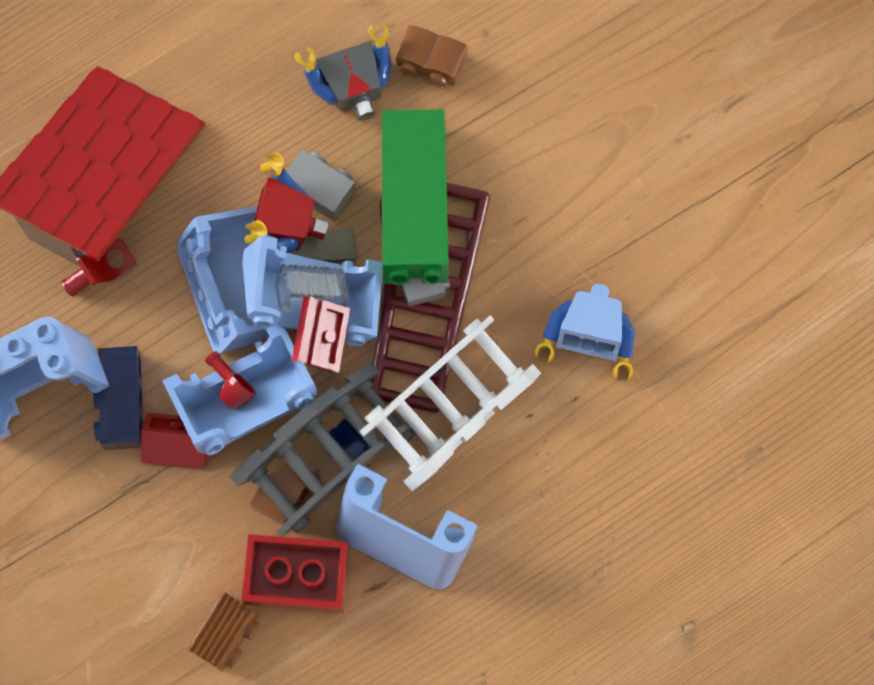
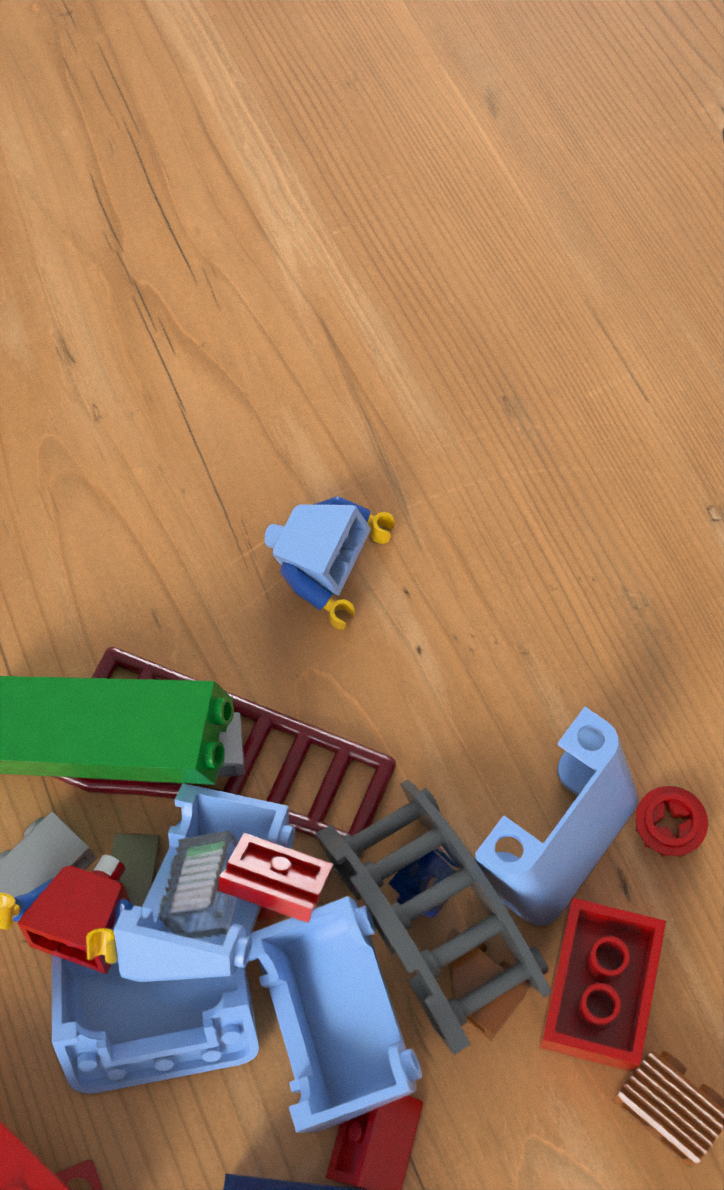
camera: 75 degrees left, 10 degrees down
(235, 389) = (323, 1026): red bar -> none
(431, 600) = (681, 805): none -> red gear
(464, 427) = (477, 767): white fence -> none

